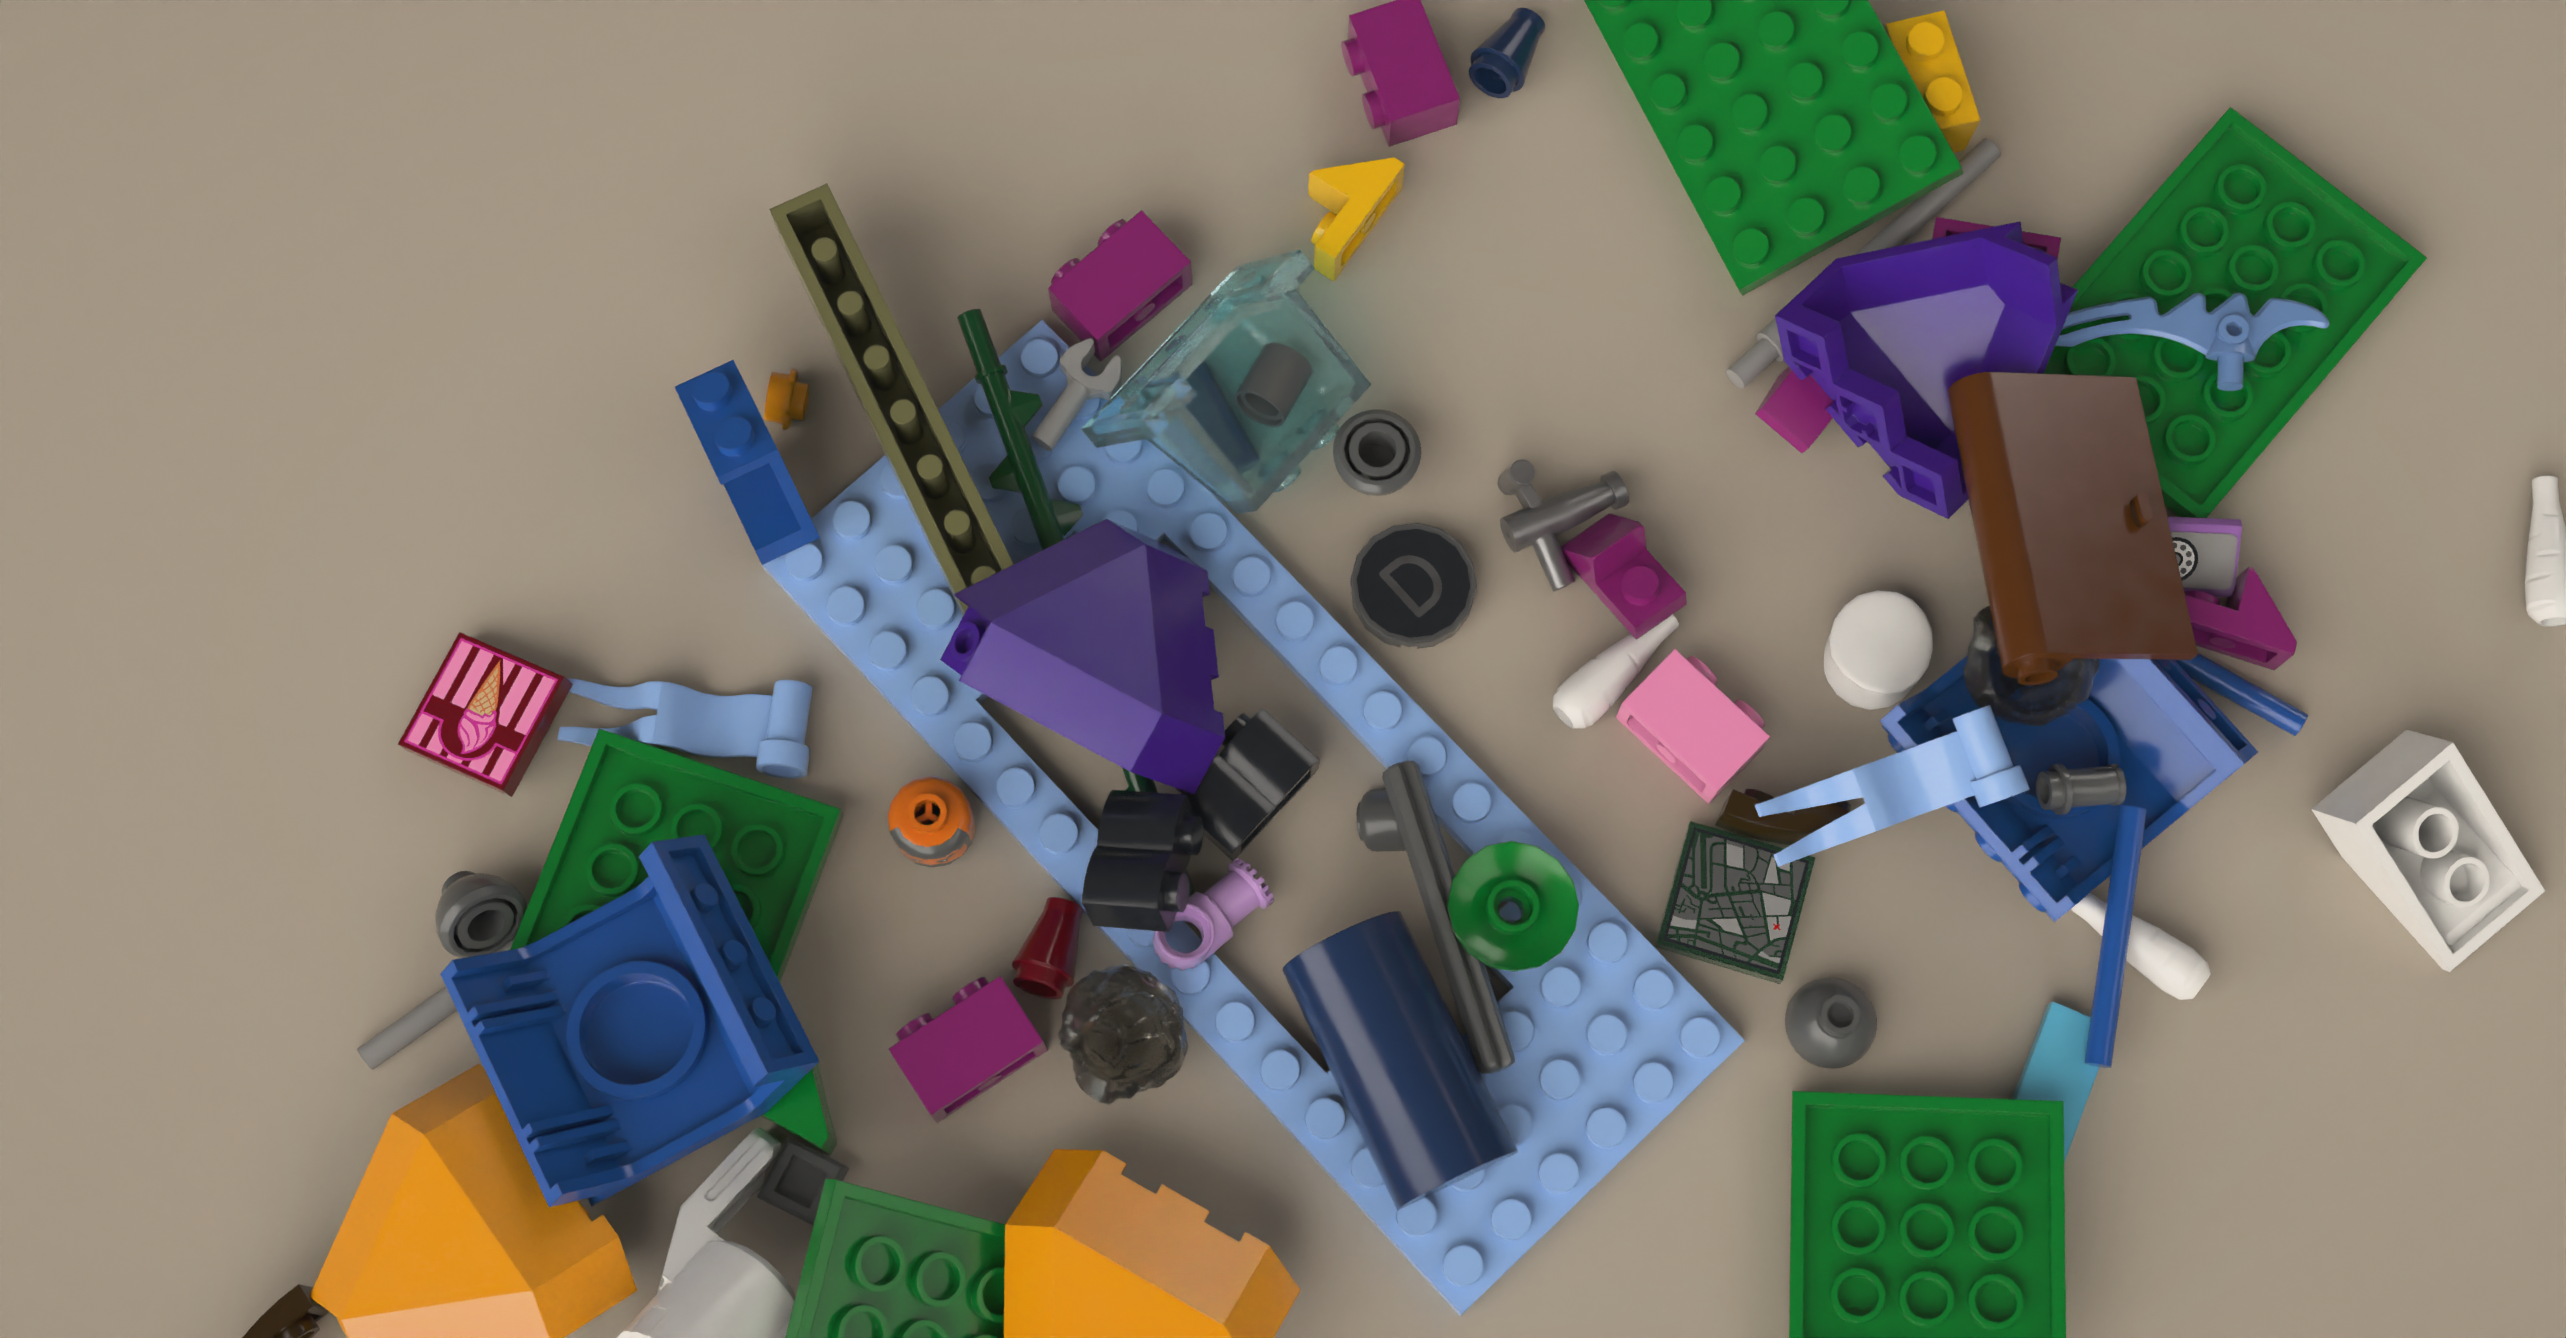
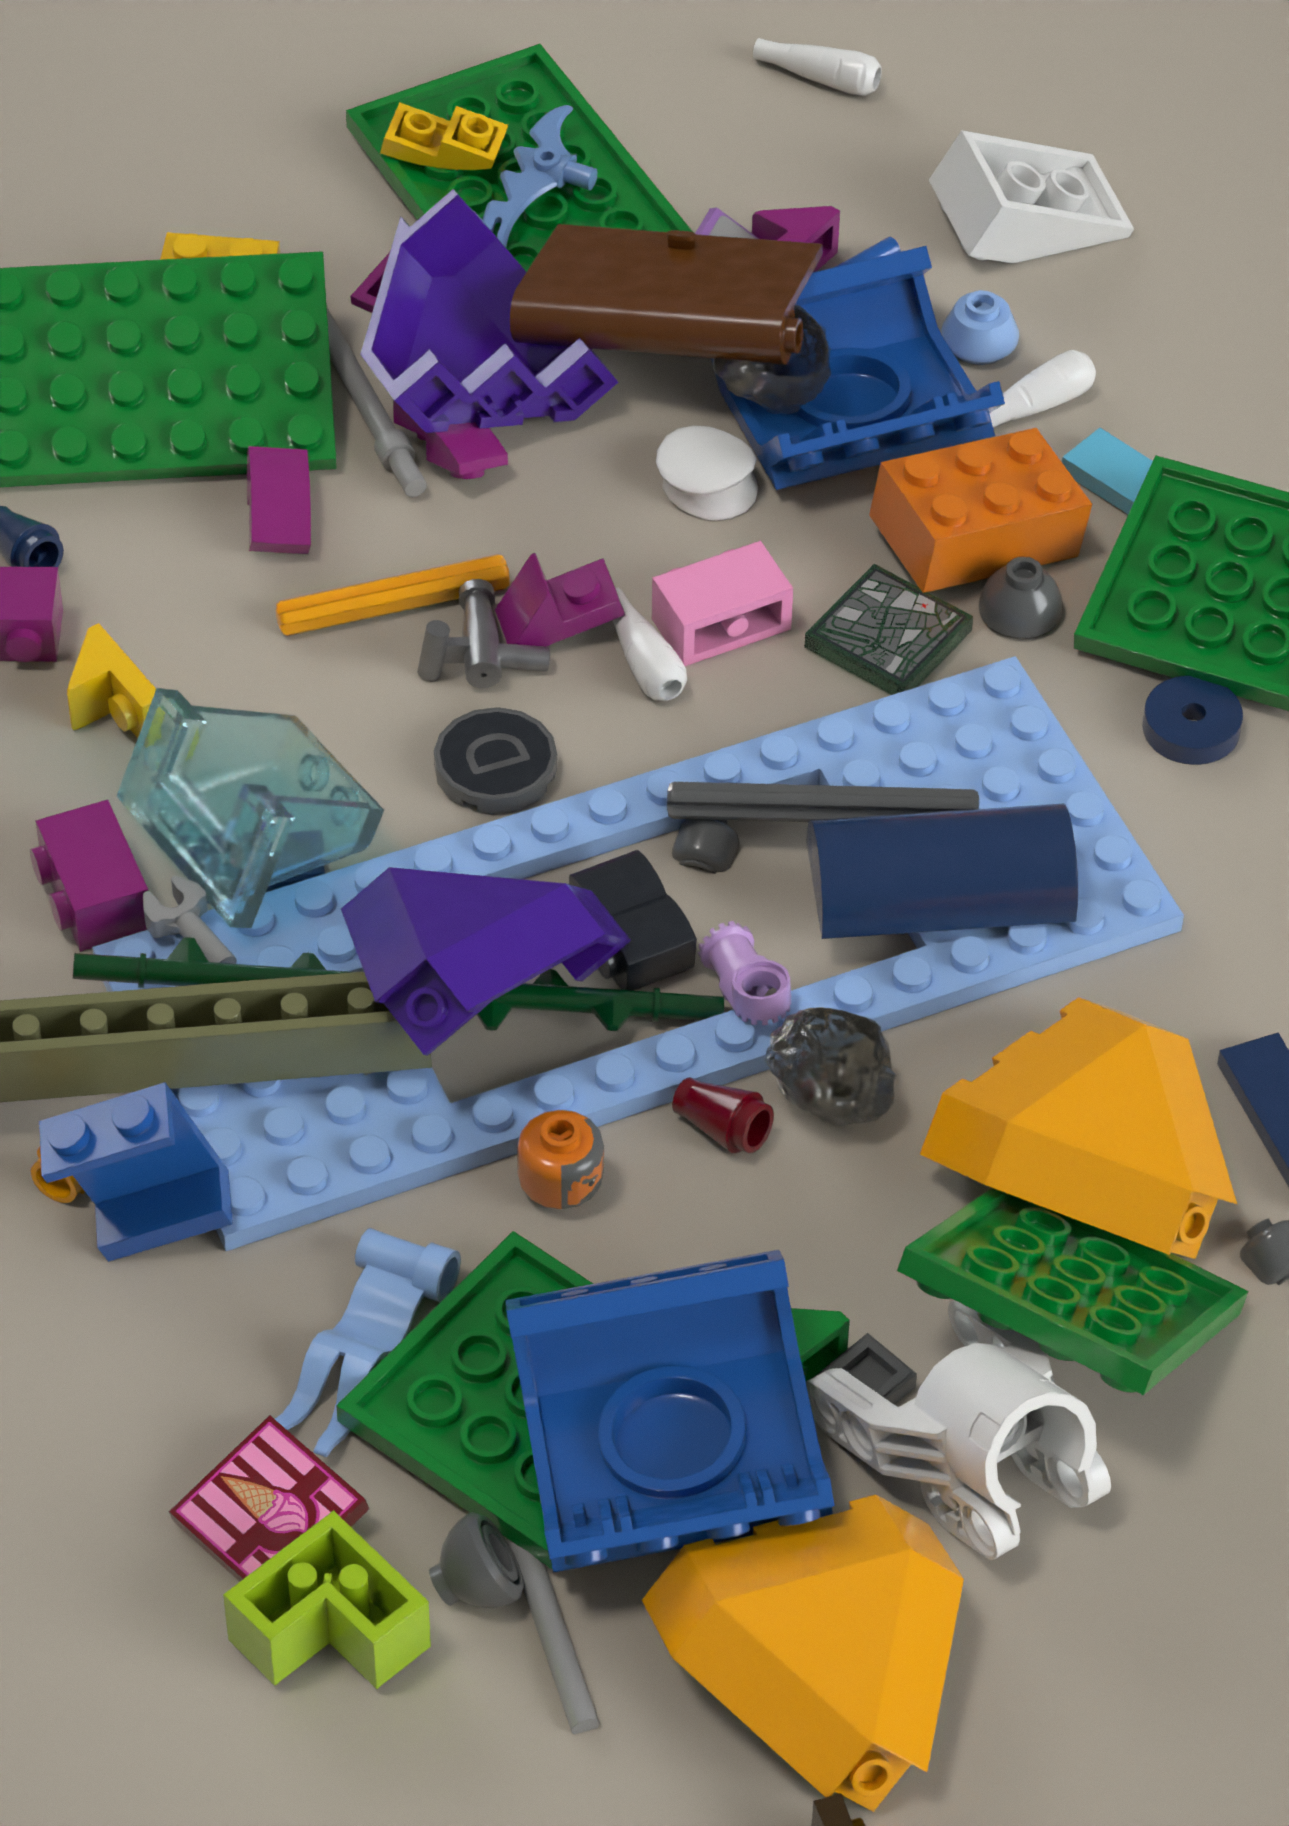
camera: 70 degrees left, 25 degrees down
(397, 805) = (326, 1592): none -> lime brick
(966, 1047) = (793, 1197): magenta brick -> none
(1141, 860) = (680, 985): black brick -> none
(1273, 384) = (253, 766): dark grey beam -> none
(1377, 452) = (364, 731): dark grey brick -> none
(1534, 884) = (838, 745): green dish -> none
(1585, 412) = (387, 595): none -> light orange axle
(1659, 258) = (278, 500): none -> magenta slope
(1709, 1253) = (1188, 741): none -> dark blue piece
(1741, 817) = (838, 566): dark brown slope -> none
(1908, 784) = (848, 450): light blue flag -> none
(1919, 942) = (977, 507): none -> orange brick
(2066, 788) = (892, 376): dark grey pin -> none
(2115, 936) = (1028, 393): blue bar -> none
(2207, 857) = (980, 328): none -> light blue cone
(2219, 218) = (462, 143): none -> yellow slope

